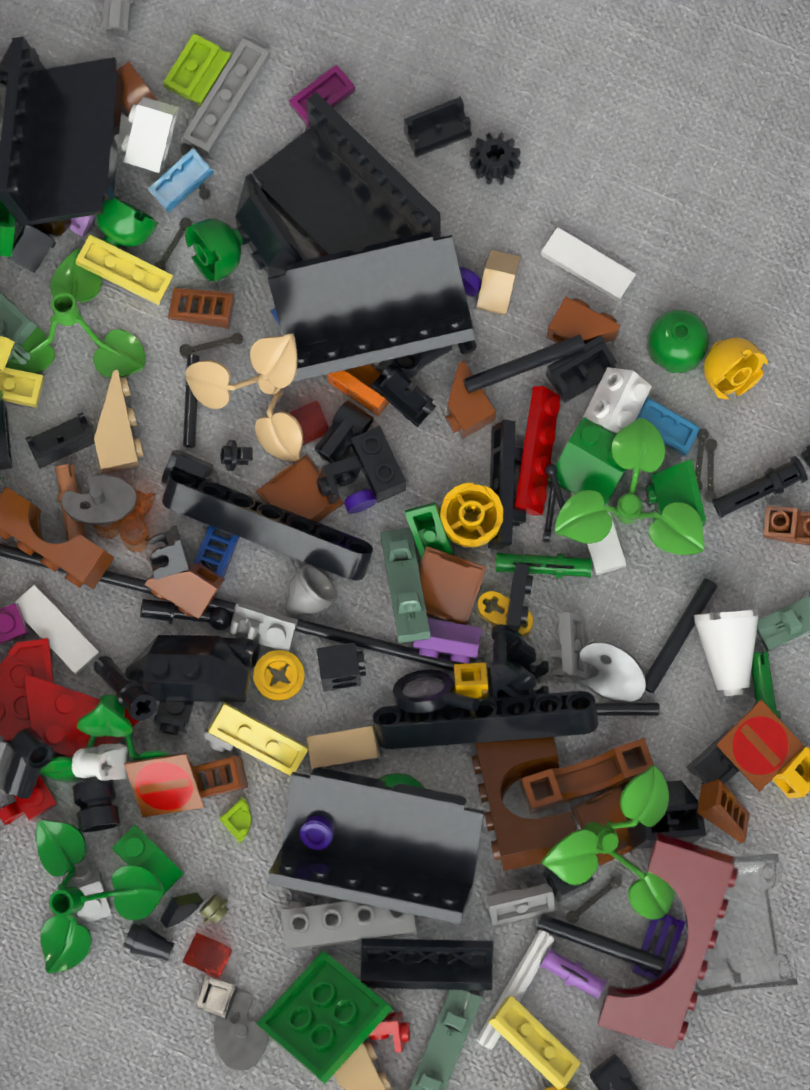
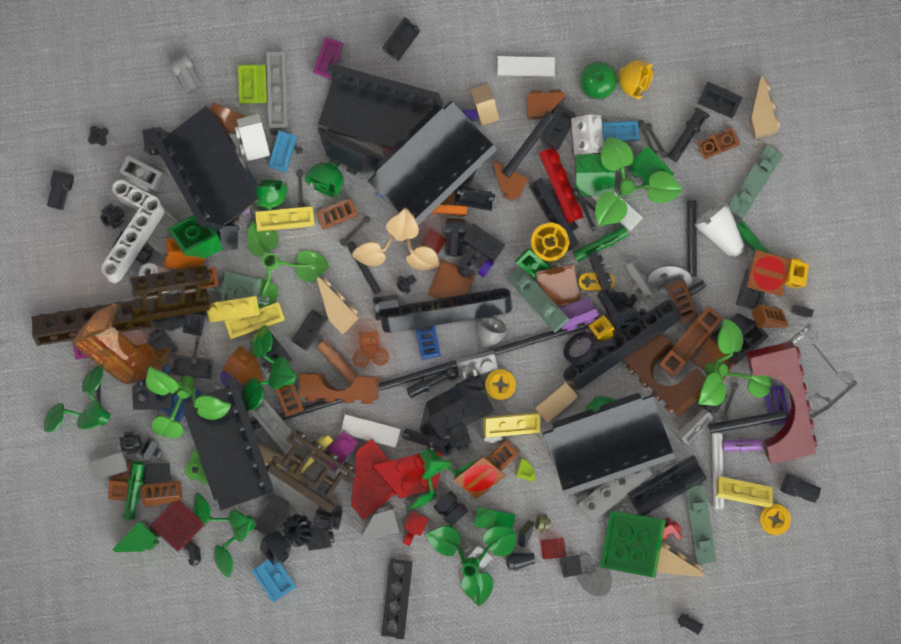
camera: 30 degrees left, 10 degrees up
(30, 757) = (405, 508): black piece -> none
(101, 761) = (441, 486): white piece -> none
(109, 501) = (358, 347): flat silver piece -> none
(169, 558) = (408, 359): hinge -> none
(189, 589) = (426, 368): slope -> none
(317, 832) = (572, 454): dark purple tile -> none
(340, 666) = (531, 362): black brick -> none
(499, 148) = (435, 38): black gear -> none
(608, 739) = (690, 308): none -> reddish brown slope
(777, 833) = (802, 311): none -> black tile

